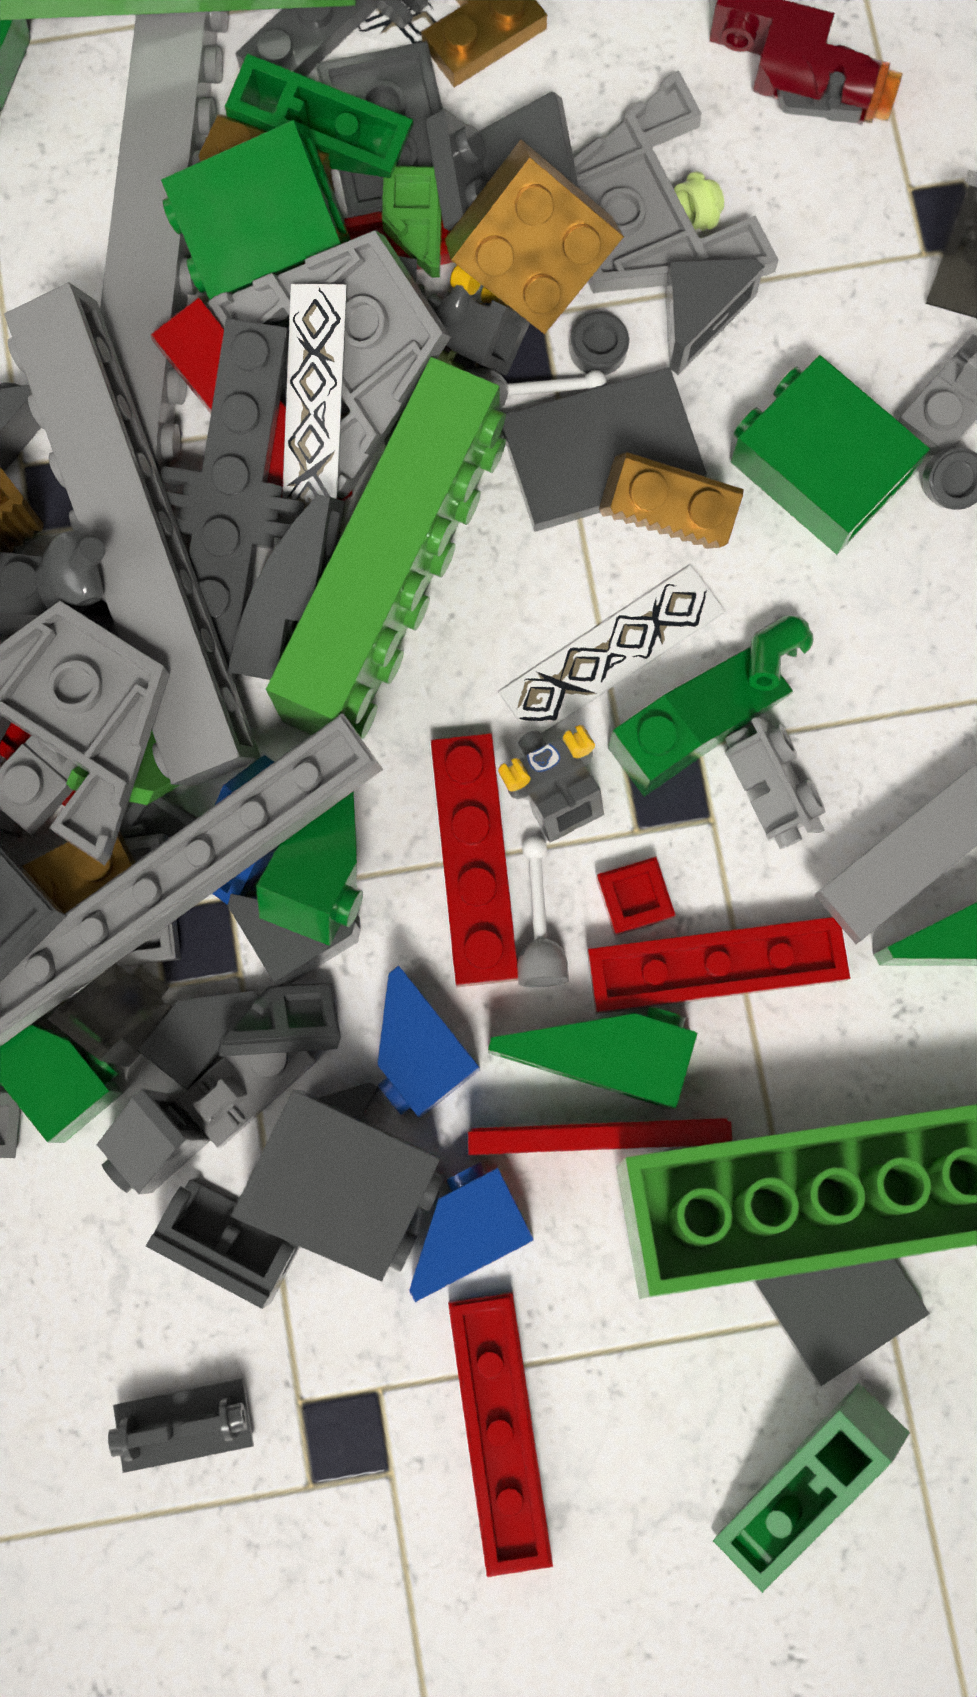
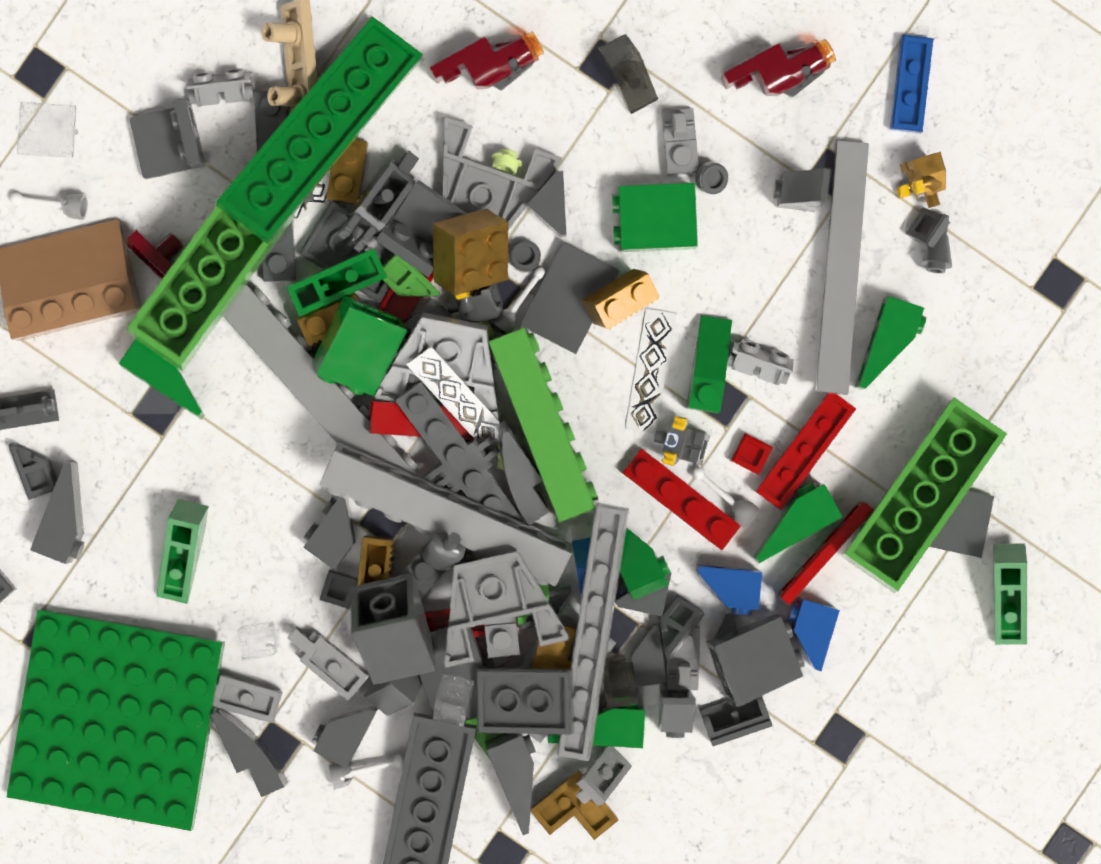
camera: 50 degrees left, 10 degrees up
(181, 1426) = (783, 790): dark grey hinge -> none
(482, 76) = (380, 199): none -> dark grey hinge
(500, 1434) = (890, 682): red tile -> none
(771, 644) = (708, 312): green arm -> none

